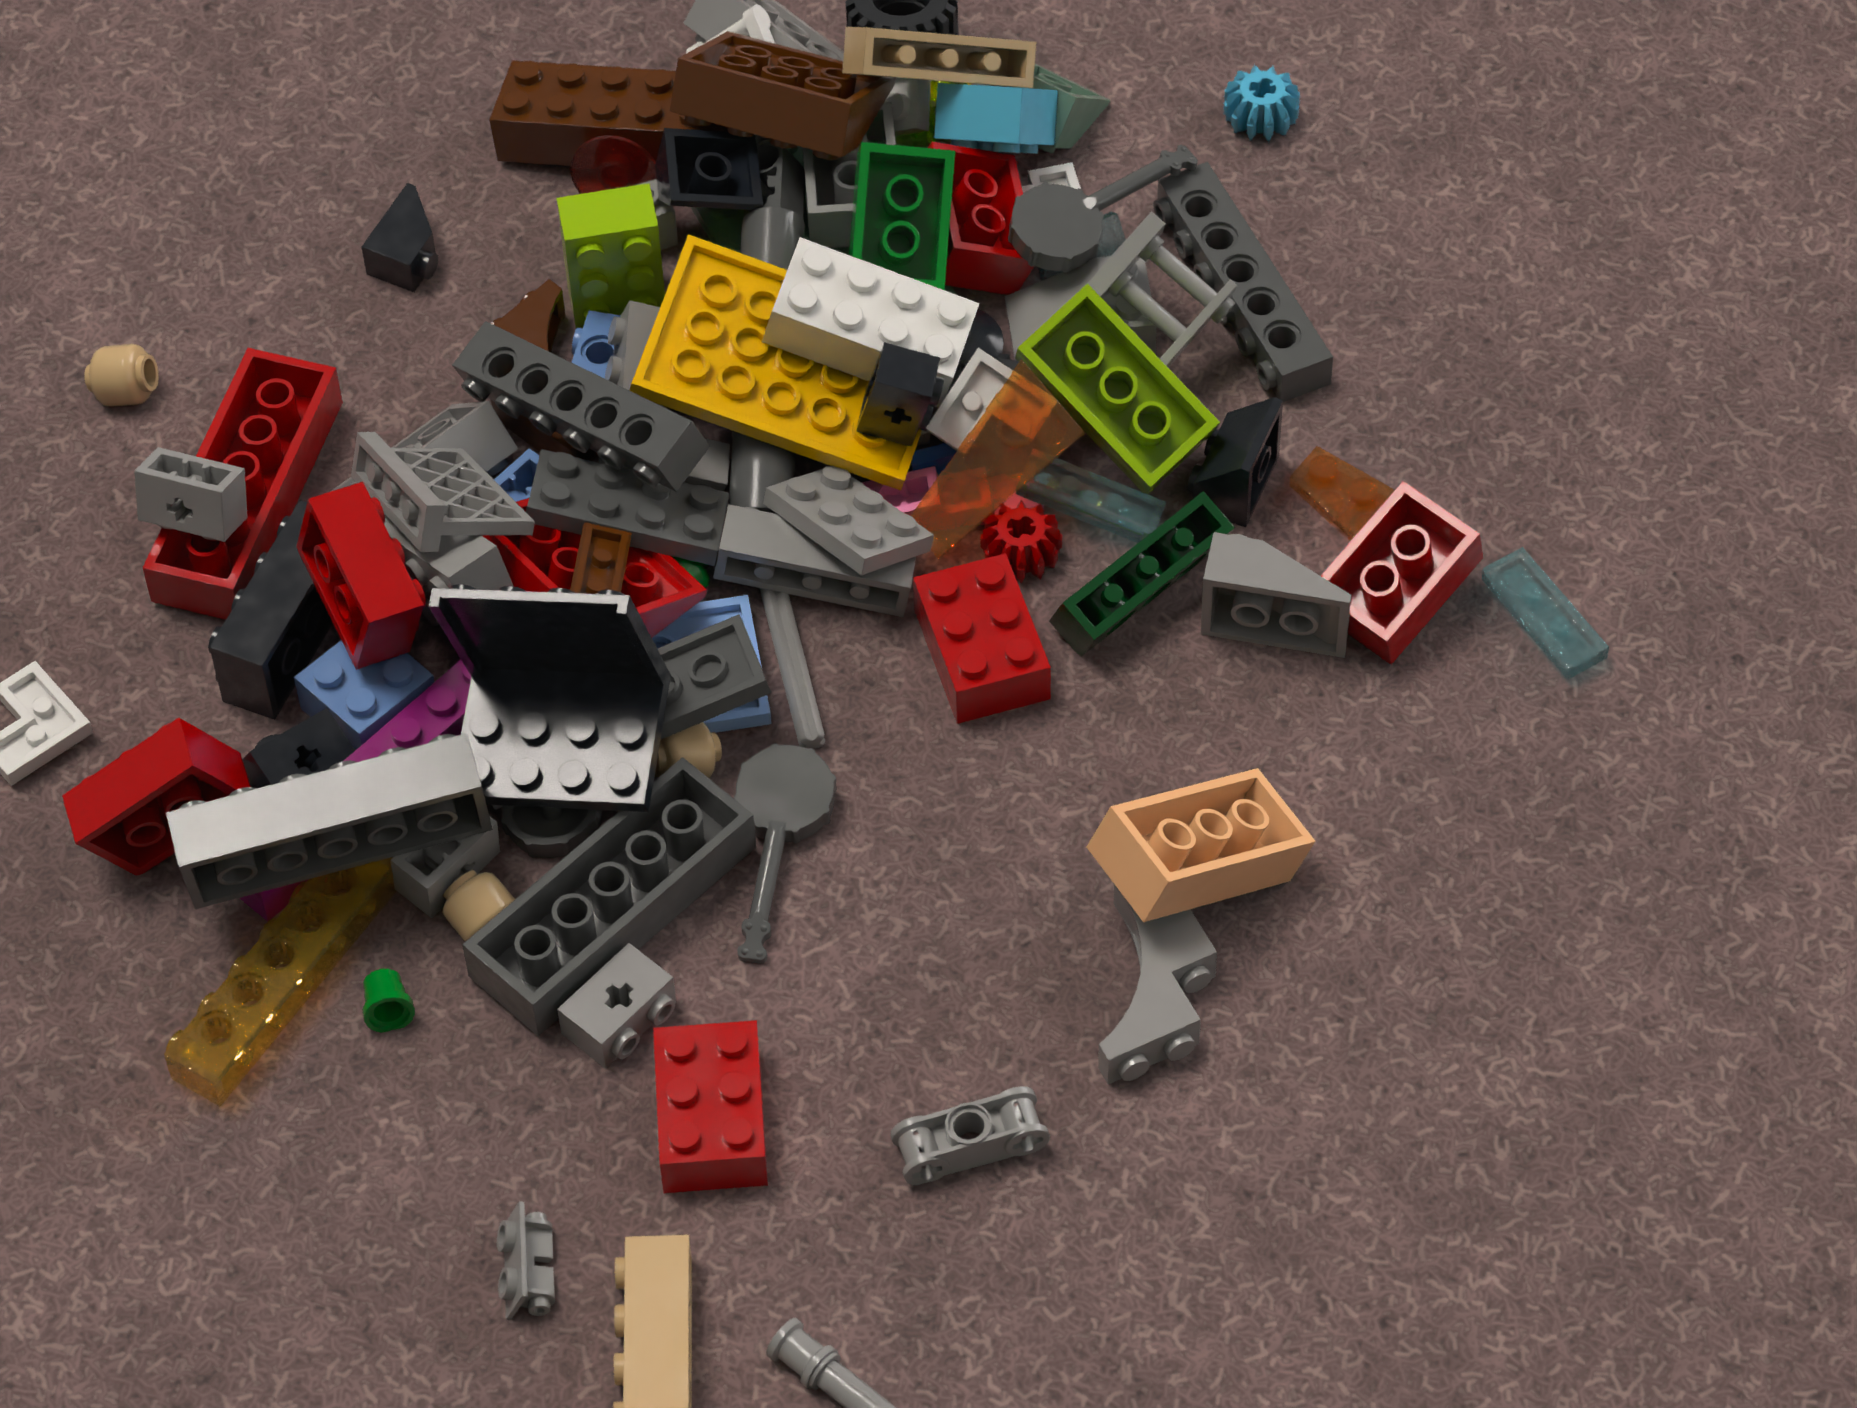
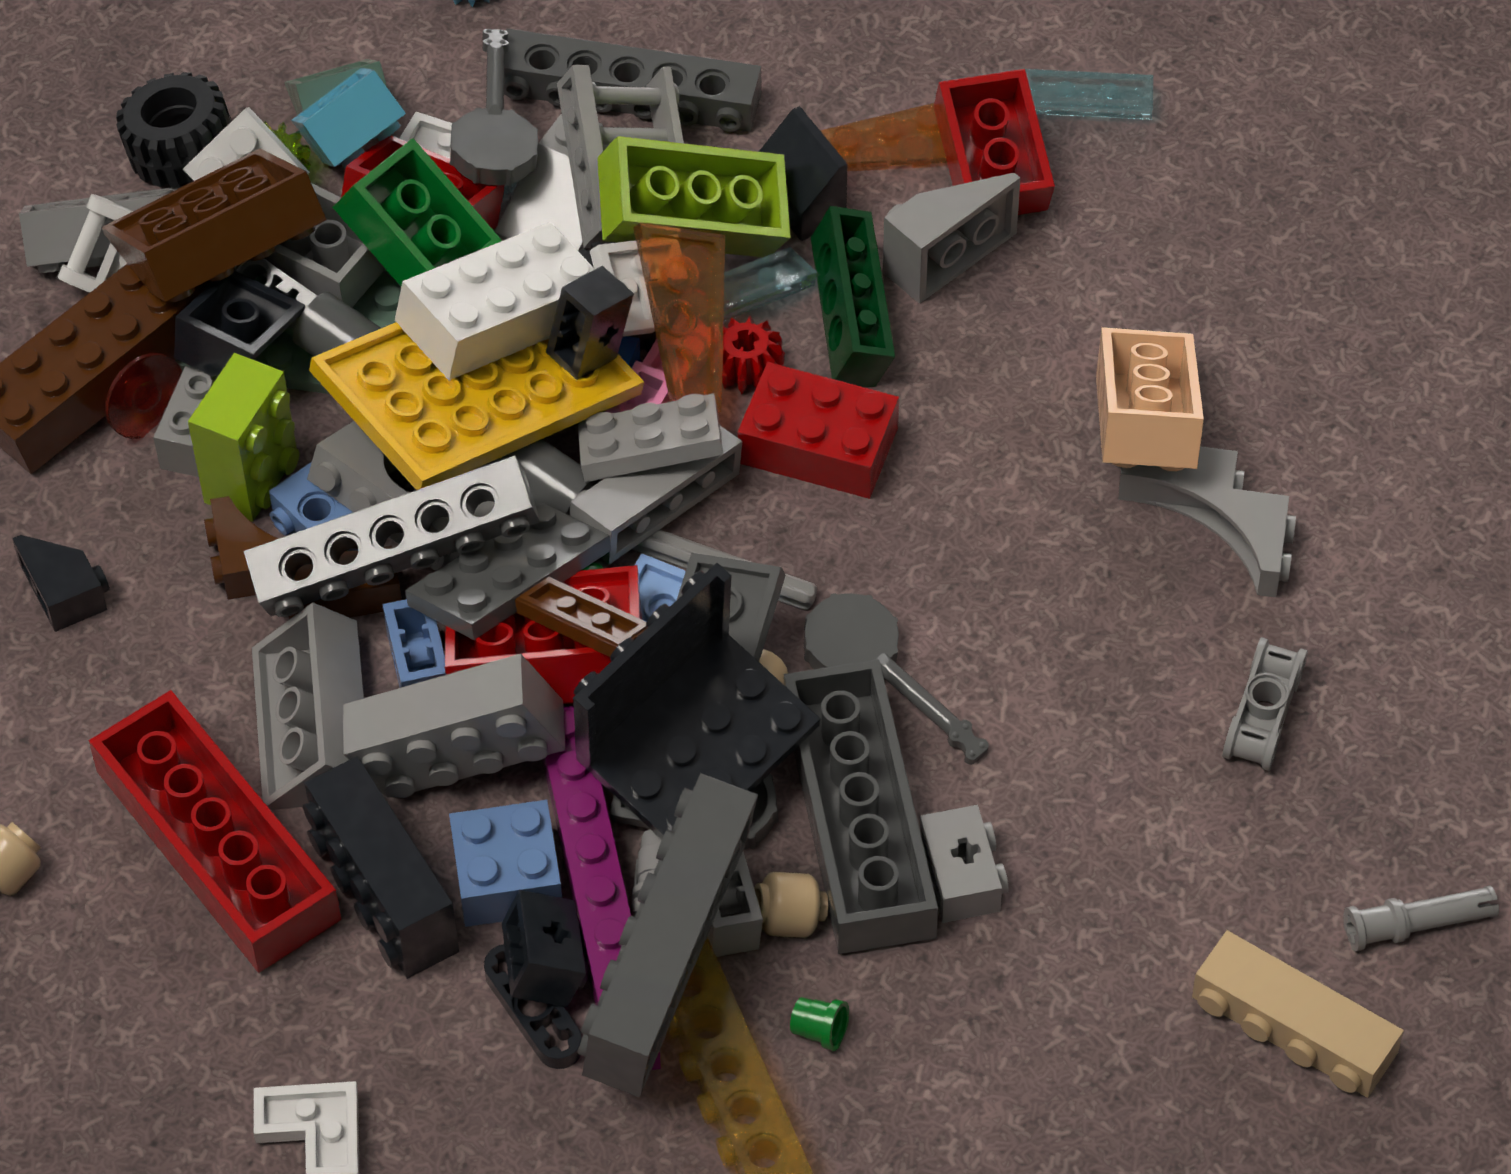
camera: 55 degrees left, 0 degrees up
(125, 804) = (508, 1058): red brick -> none
(191, 494) = (231, 854): light grey brick -> none
(360, 574) = (444, 773): red brick -> none
(435, 492) = (400, 680): light grey fence -> none
(520, 1280) = (1138, 1064): light grey hinge -> none
(710, 1106) = (1108, 853): red brick -> none
(939, 57) = (284, 106): tan brick -> none

